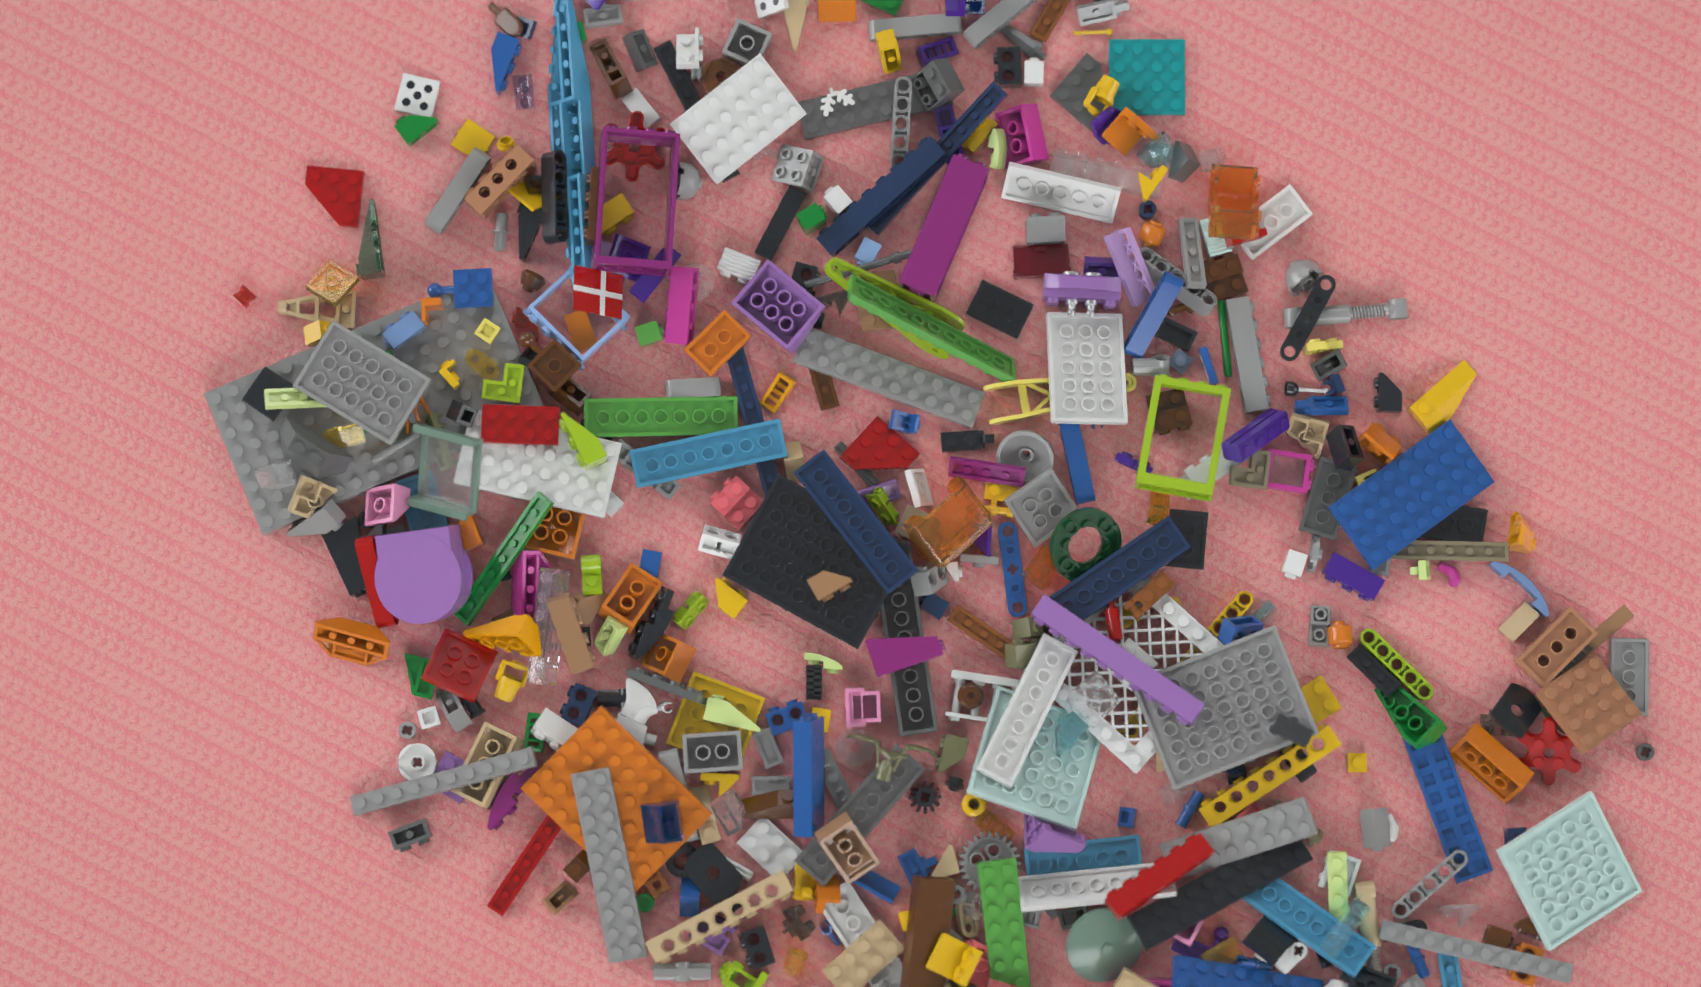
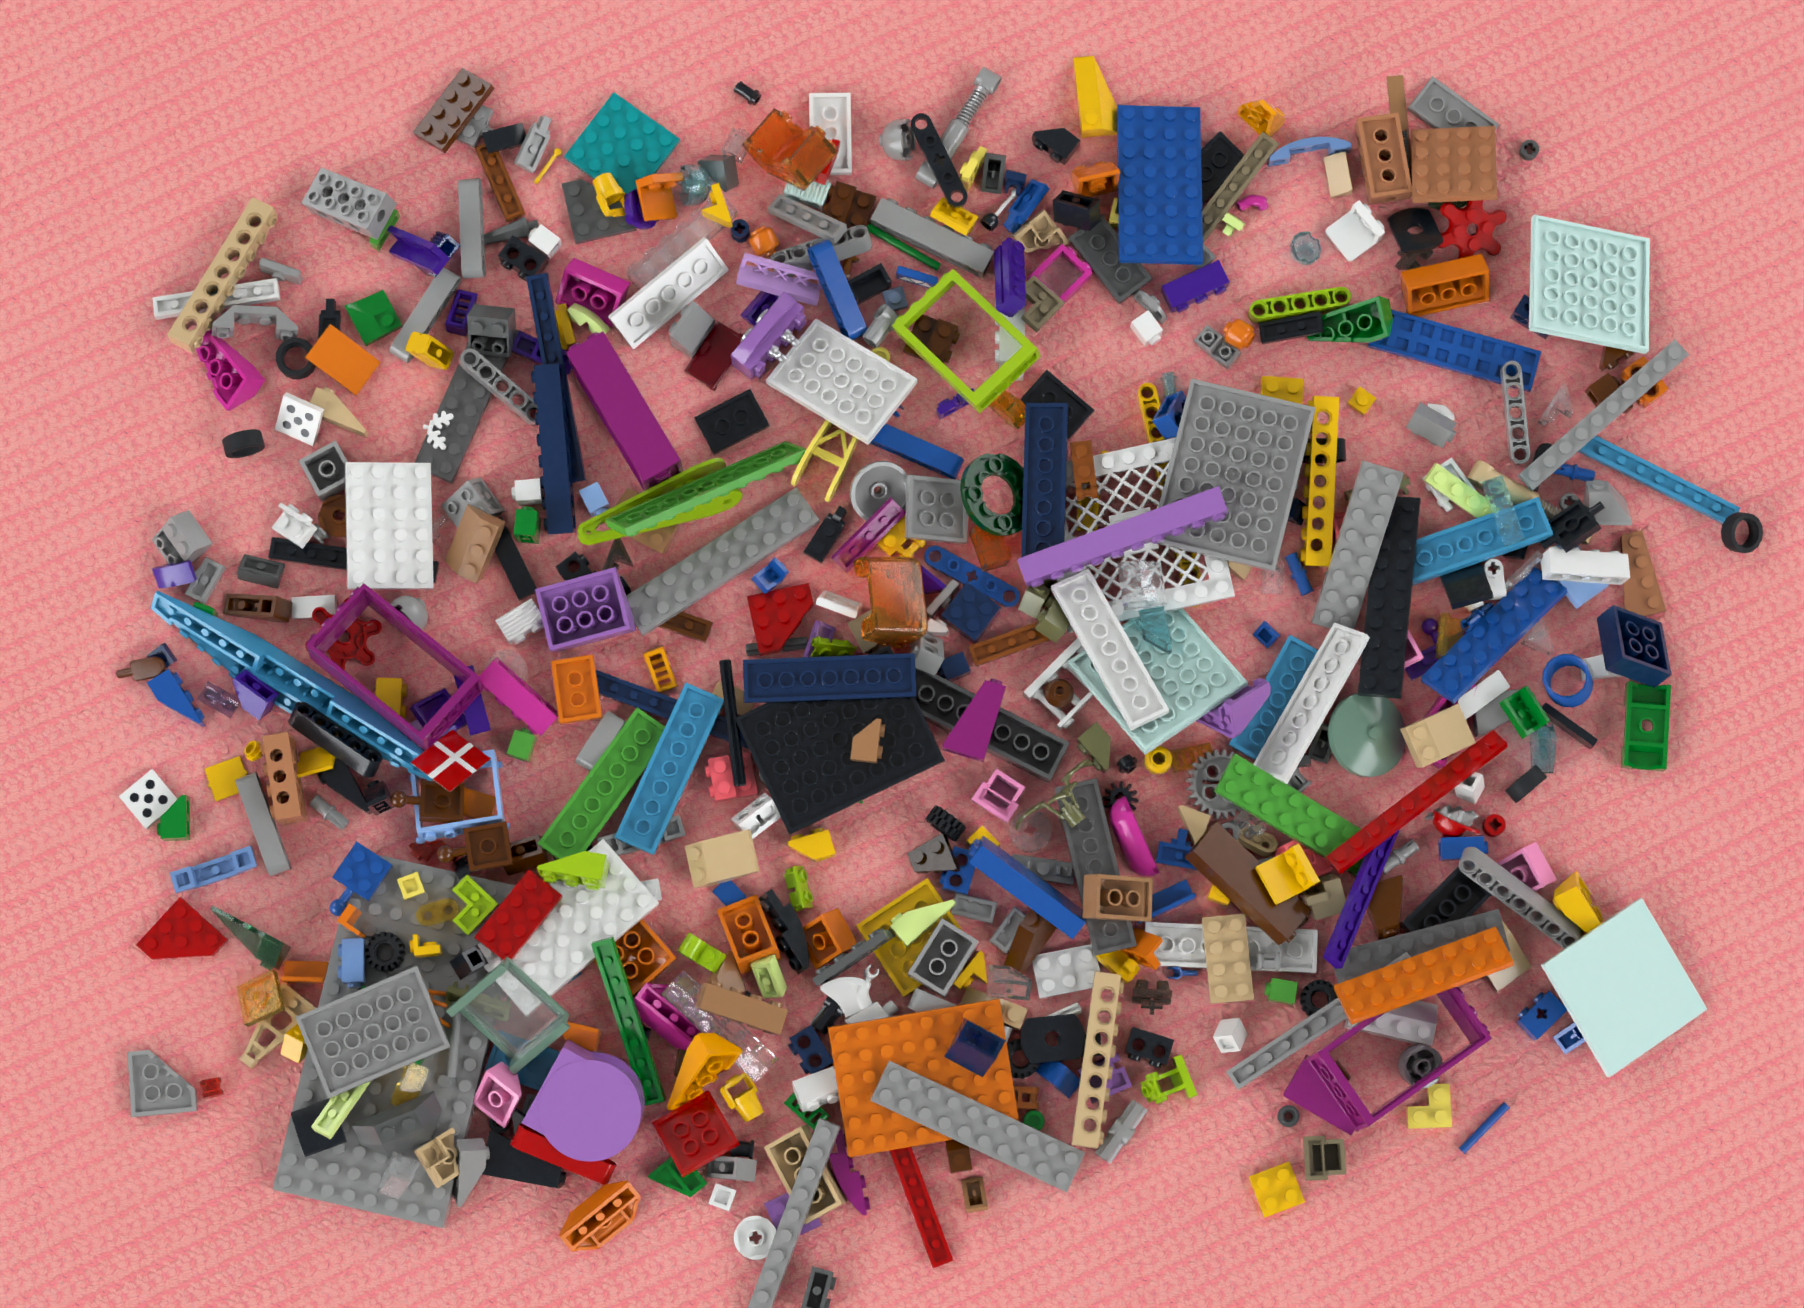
camera: 55 degrees left, 5 degrees down
(218, 257) = (157, 1087): none -> light grey plate
(374, 300) = (305, 972): none -> orange panel
(399, 180) = (214, 870): none -> medium blue slope
(407, 736) = (715, 1220): light grey bush -> none
(427, 359) = (394, 961): none -> black tyre
(531, 281) = (394, 817): reddish brown cone -> none
(533, 184) = (308, 751): dark brown plate -> none
(535, 258) = (377, 797): none -> black slope
(545, 114) = (254, 694): none -> dark purple slope
(558, 303) = (435, 802): none -> reddish brown plate
(591, 213) = (374, 714): reddish brown plate -> none
(669, 539) = (721, 859): none -> tan slope
(770, 190) = (474, 543): none -> medium nougat slope
(780, 468) = (732, 726): none -> black axle
(783, 691) = (934, 856): none -> wing
(795, 961) = (1185, 1021): clear yellow slope -> none
(828, 664) = (939, 798): yellowish green slope -> none
(895, 258) = (618, 477): dark grey bar -> none
(901, 826) = (1131, 839): none -> dark pink brick
(983, 588) = (970, 613): none -> dark blue brick
(1113, 622) = (1084, 518): red cylinder -> none
(1159, 876) = (1342, 638): red brick -> none
(1257, 138) = (747, 93): none -> black pin
(1273, 364) = (956, 218): none -> yellow bracket
(1292, 731) = (1297, 428): black slope -> none
(1312, 975) = (1524, 571): none -> clear tile
(1442, 638) = (1305, 248): none -> clear light blue hair
(1483, 666) = (1355, 231): none -> white bracket

